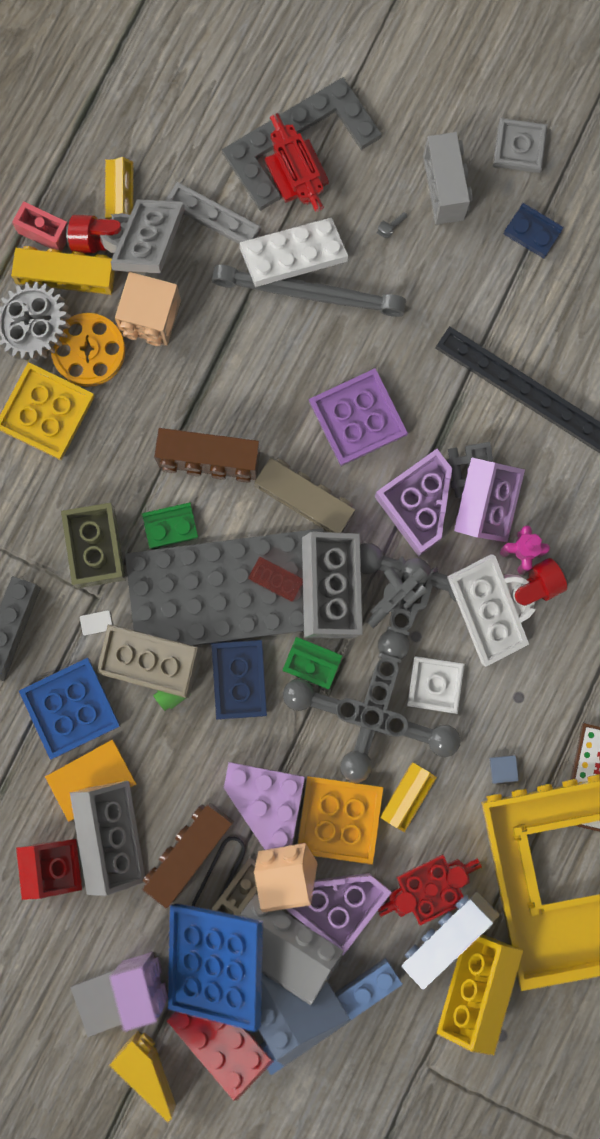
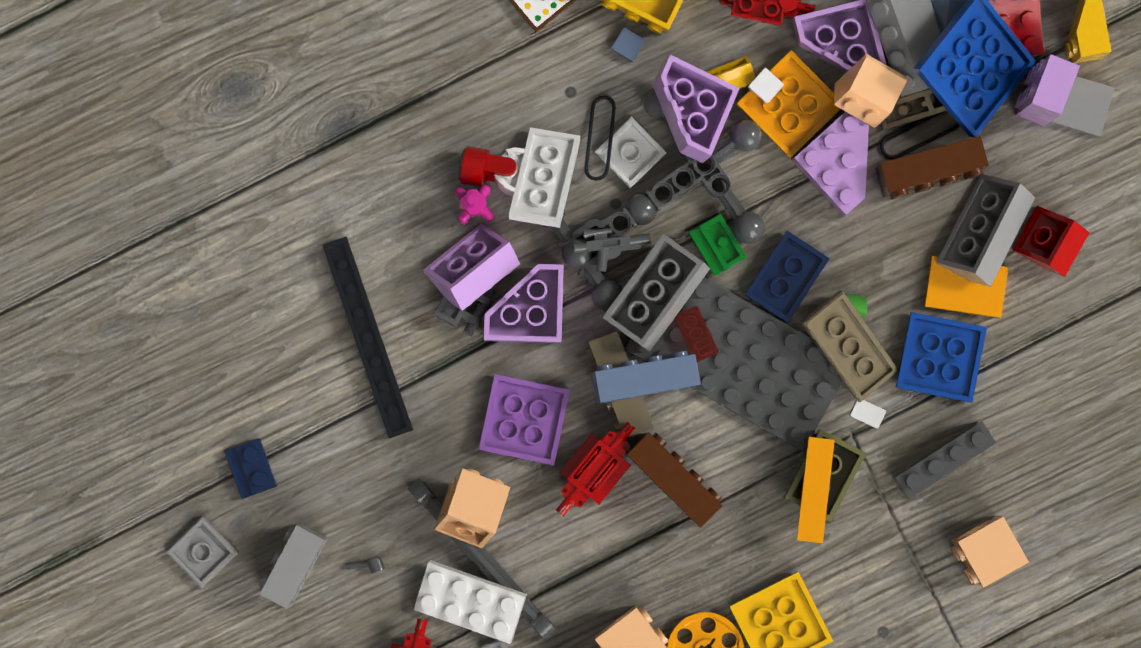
camera: 140 degrees left, 5 degrees up
(91, 525) = (815, 490): none -> light orange tile
(170, 525) = (748, 447): green plate -> none
(275, 417) = (595, 469): none -> red piece
(288, 512) = (645, 378): none -> sand blue brick
(346, 317) = (472, 507): none -> light nougat brick
(371, 818) = (765, 85): none -> white tile
(416, 755) = (693, 106): none -> lavender brick
(477, 673) = (590, 135): none -> black piece

